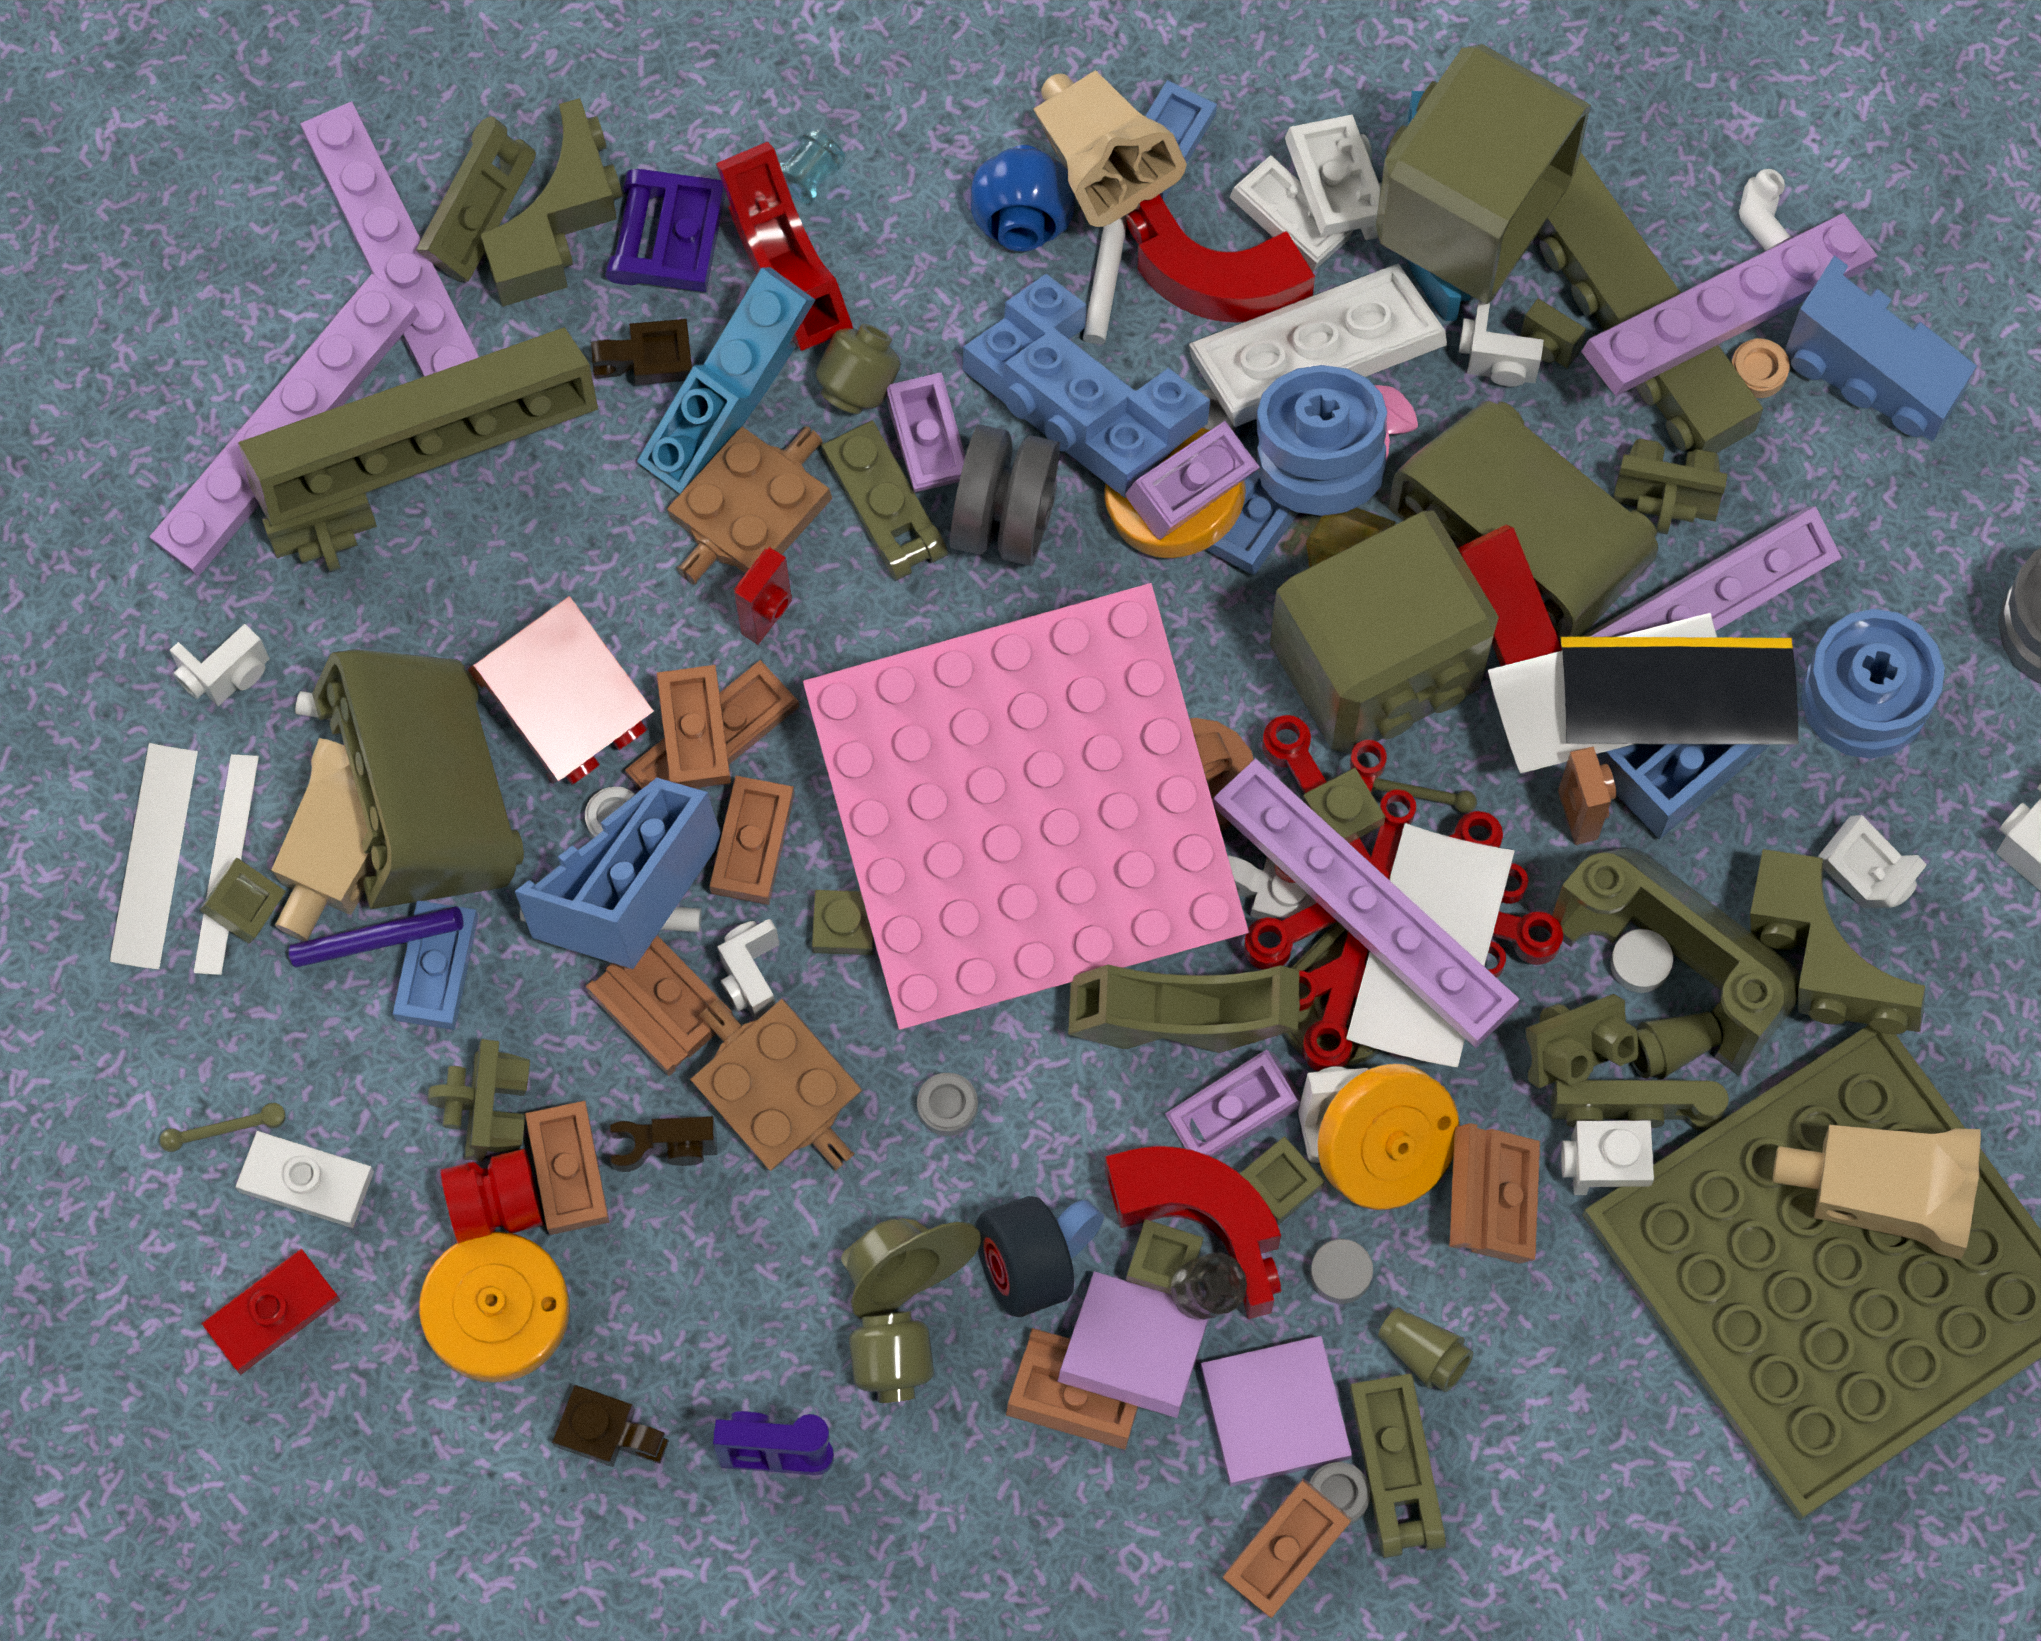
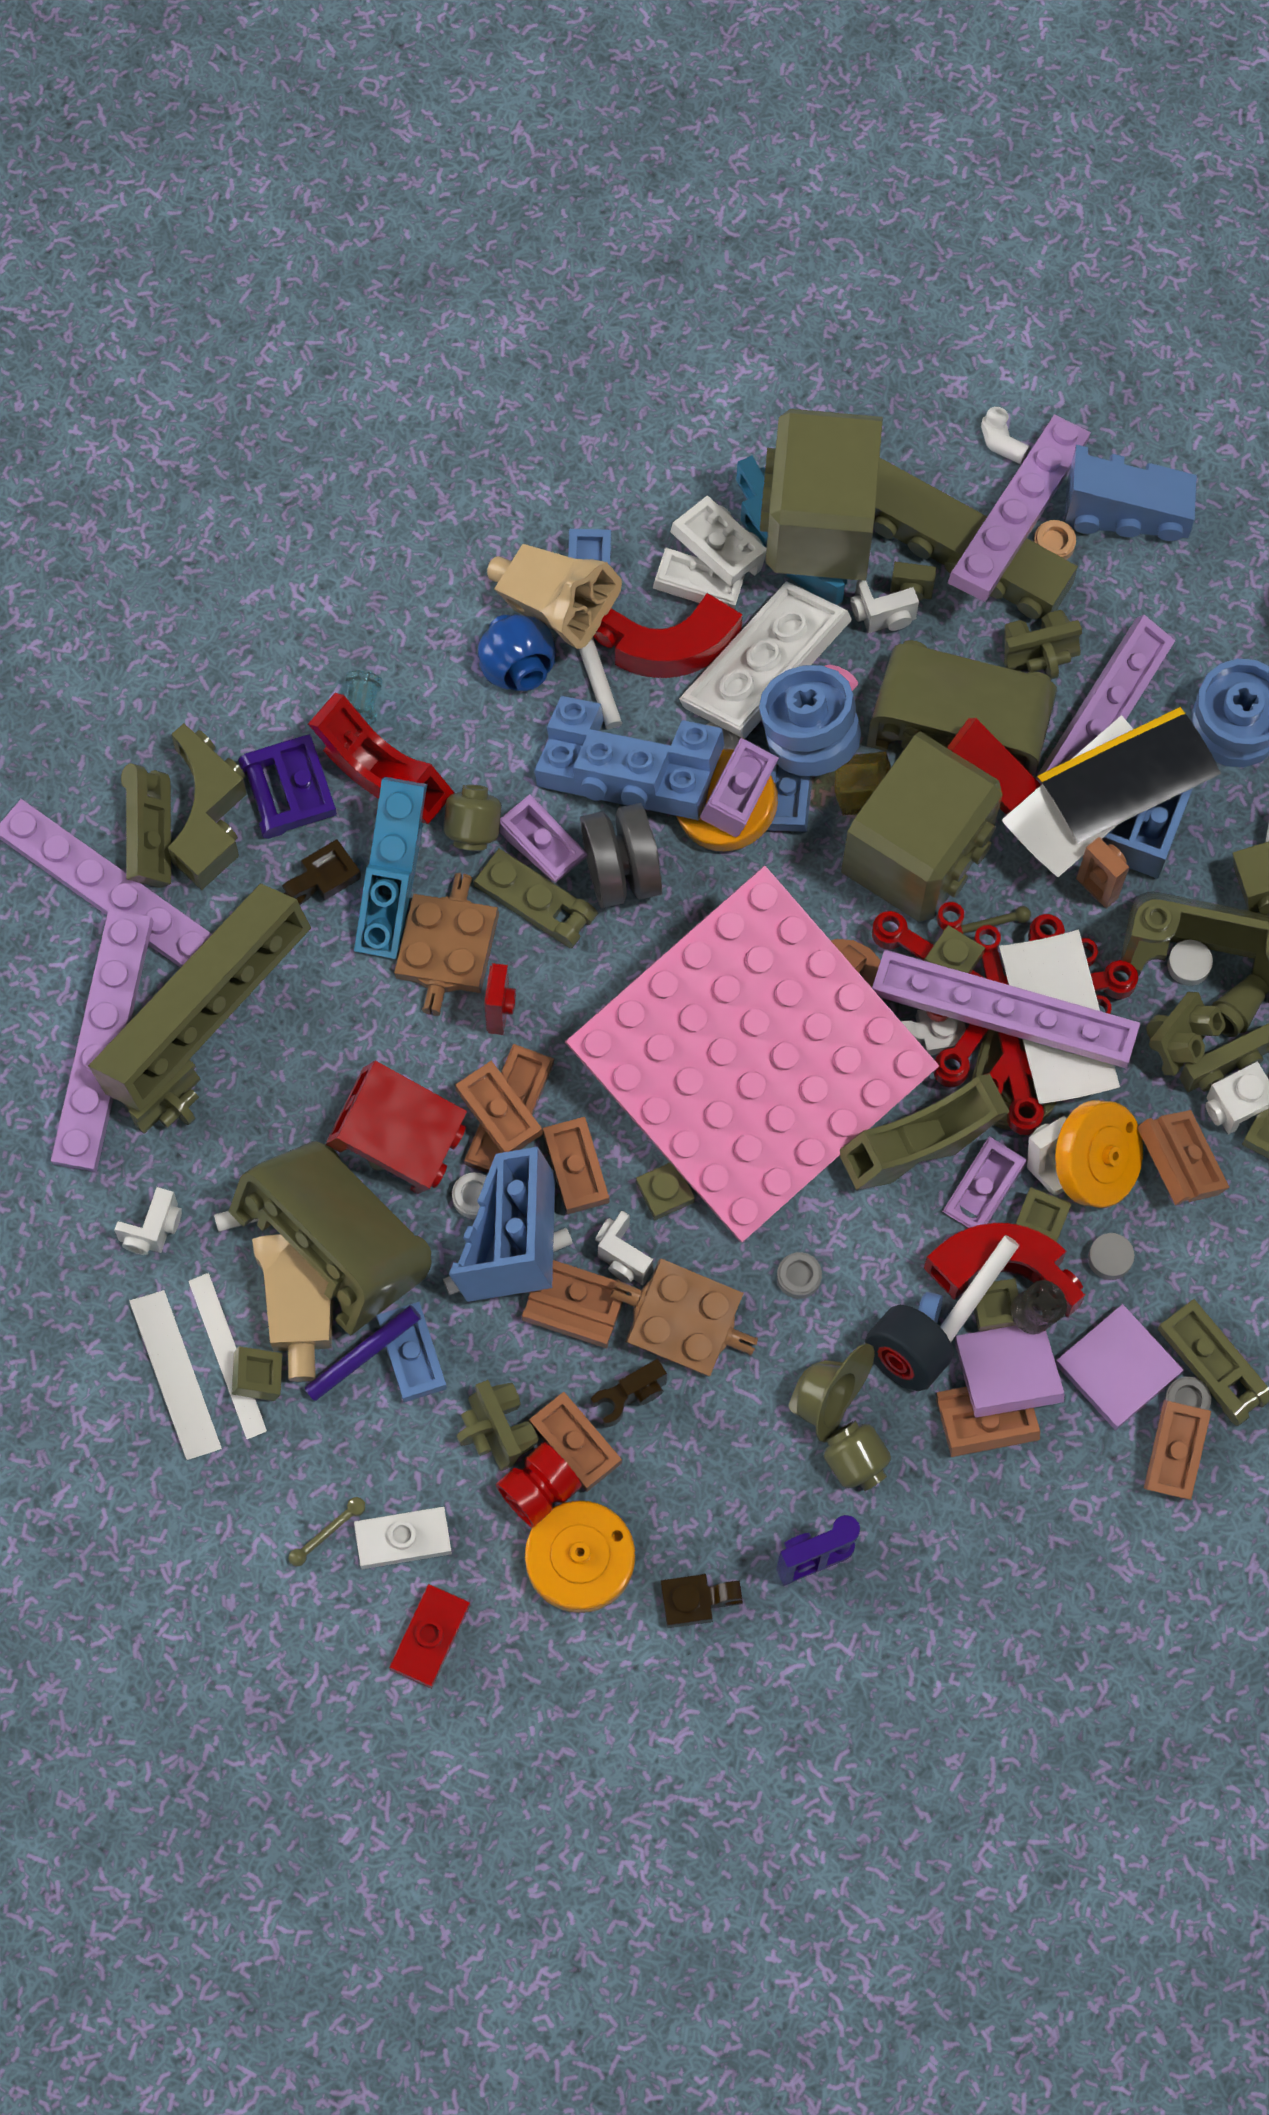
camera: 30 degrees left, 0 degrees up
(1144, 1227) = (979, 1286): none -> white bar
(1426, 1349) = (1193, 1278): olive cone -> none

